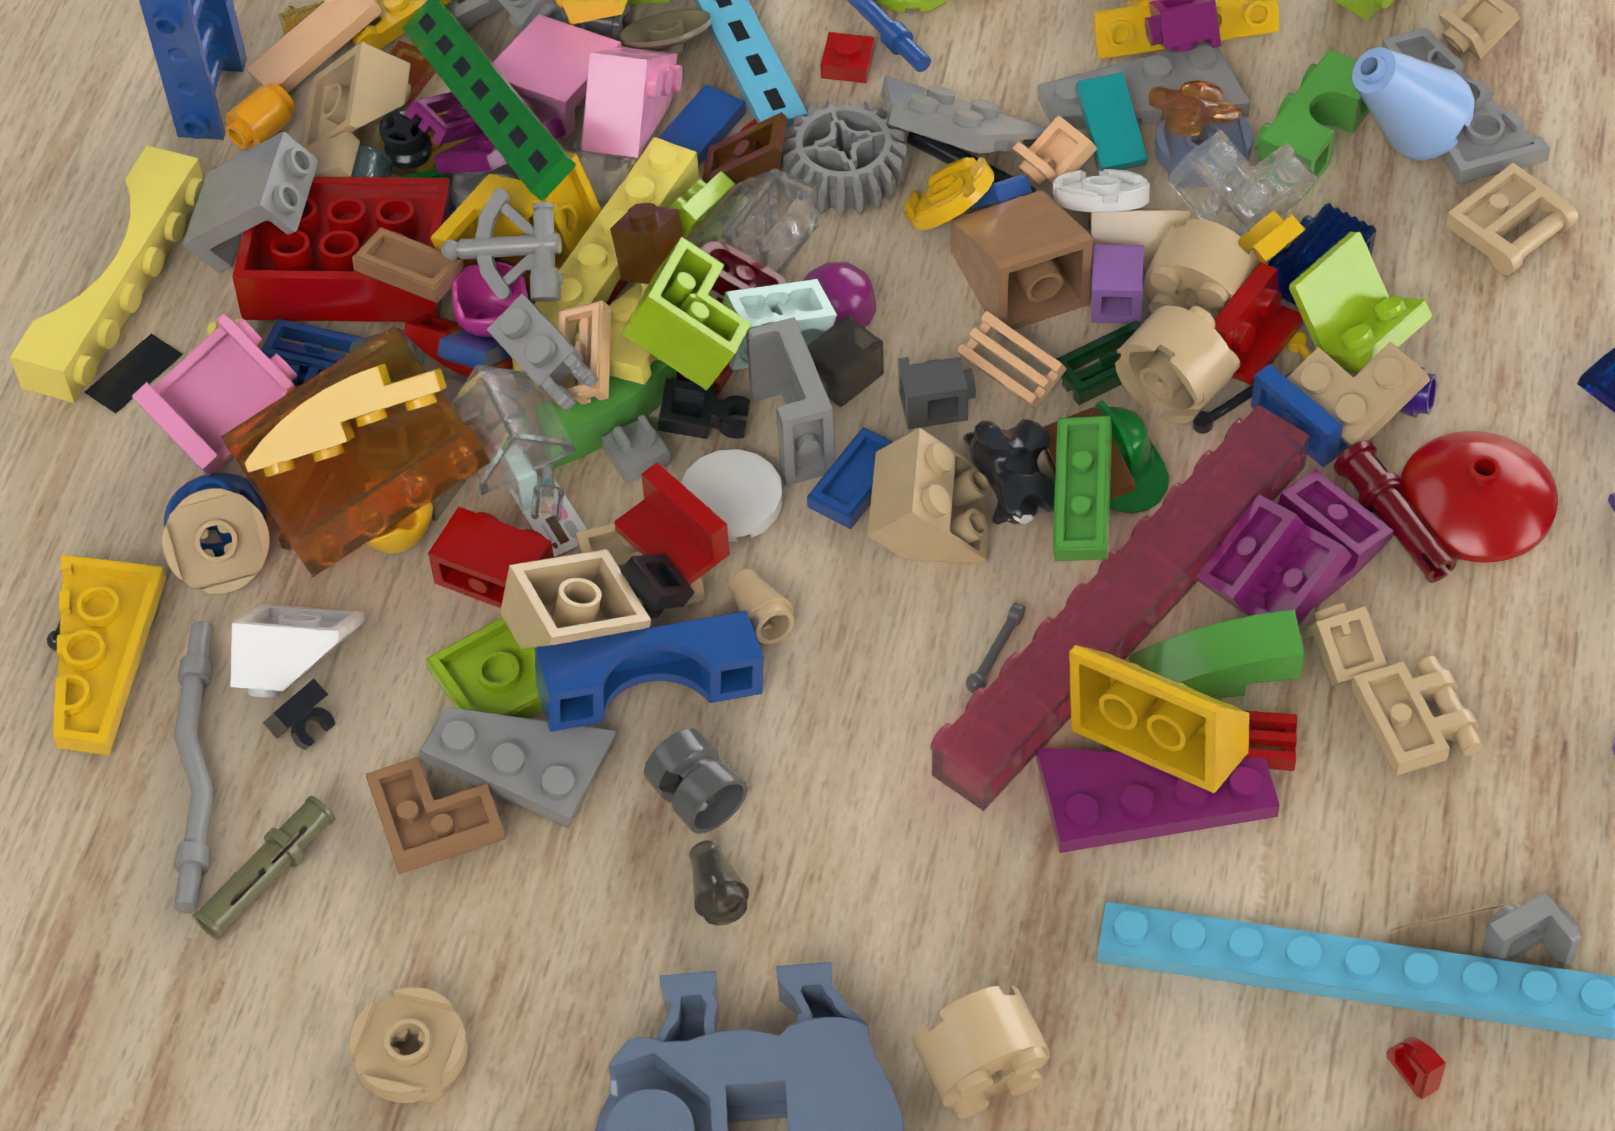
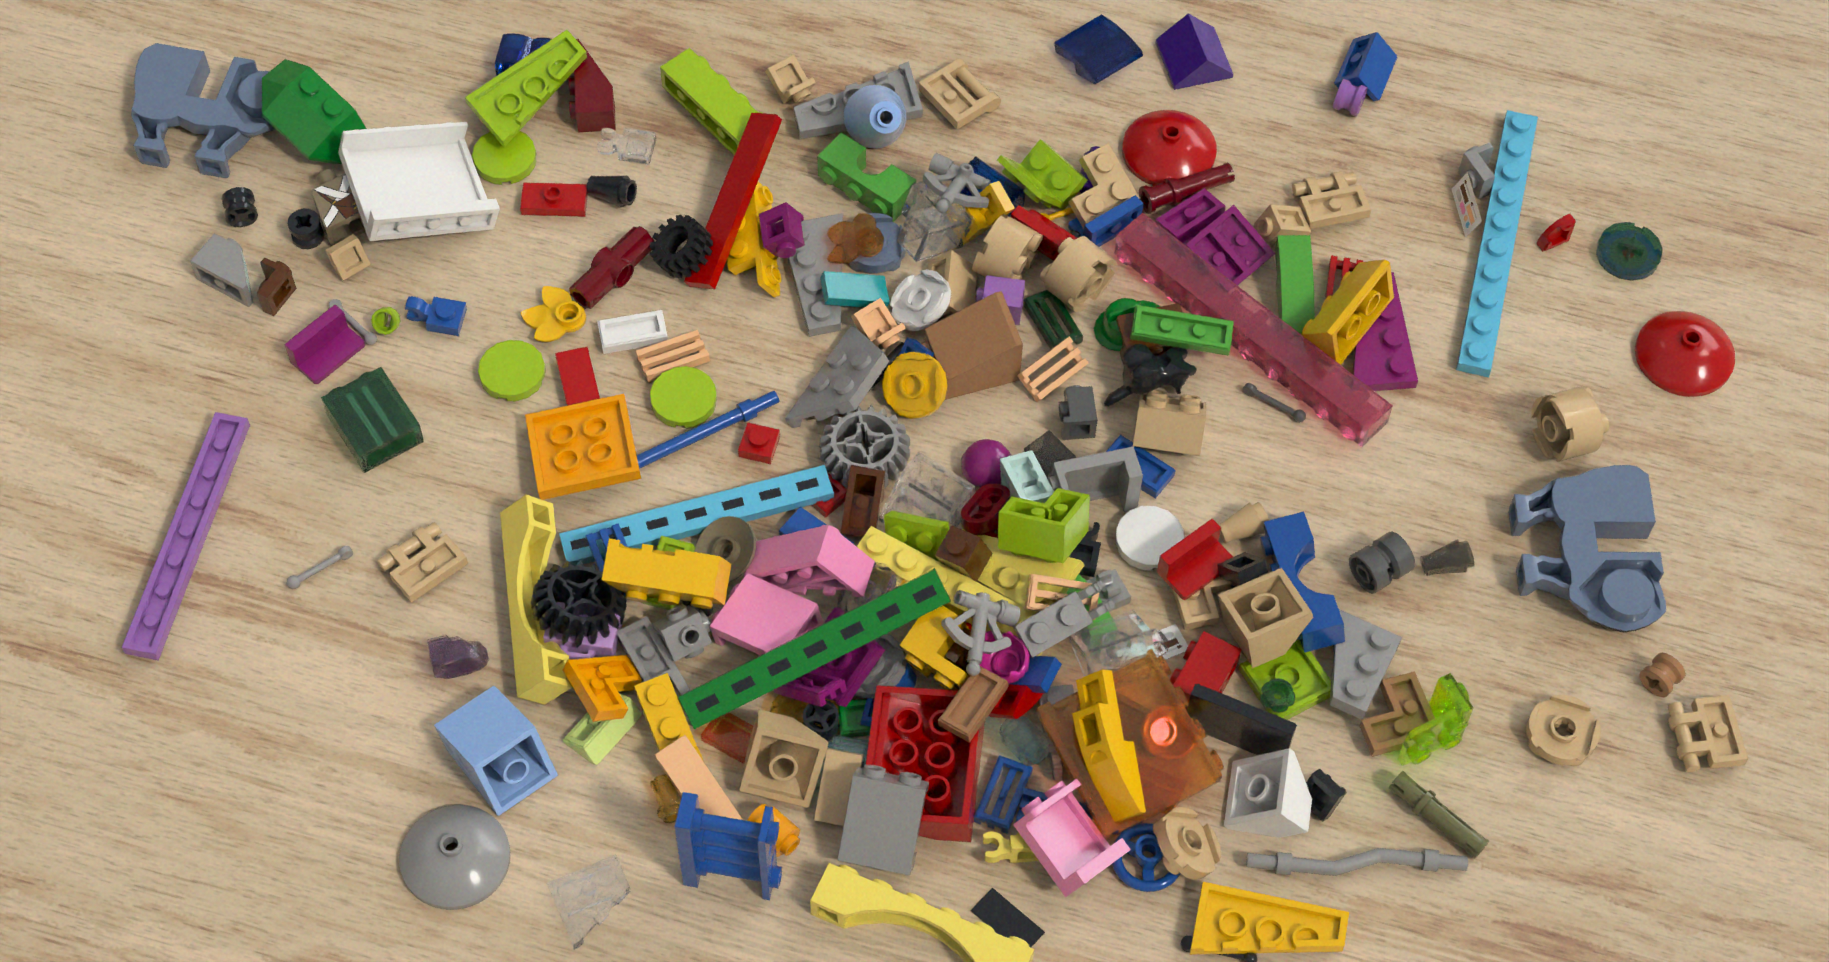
camera: 90 degrees left, 5 degrees up
(393, 590) = (1239, 722): none -> black tile
(413, 862) = (1451, 712): none -> clear neon green bracket
(449, 633) = (1280, 687): none -> clear green plate
(1315, 199) = (961, 176): none -> light grey piece

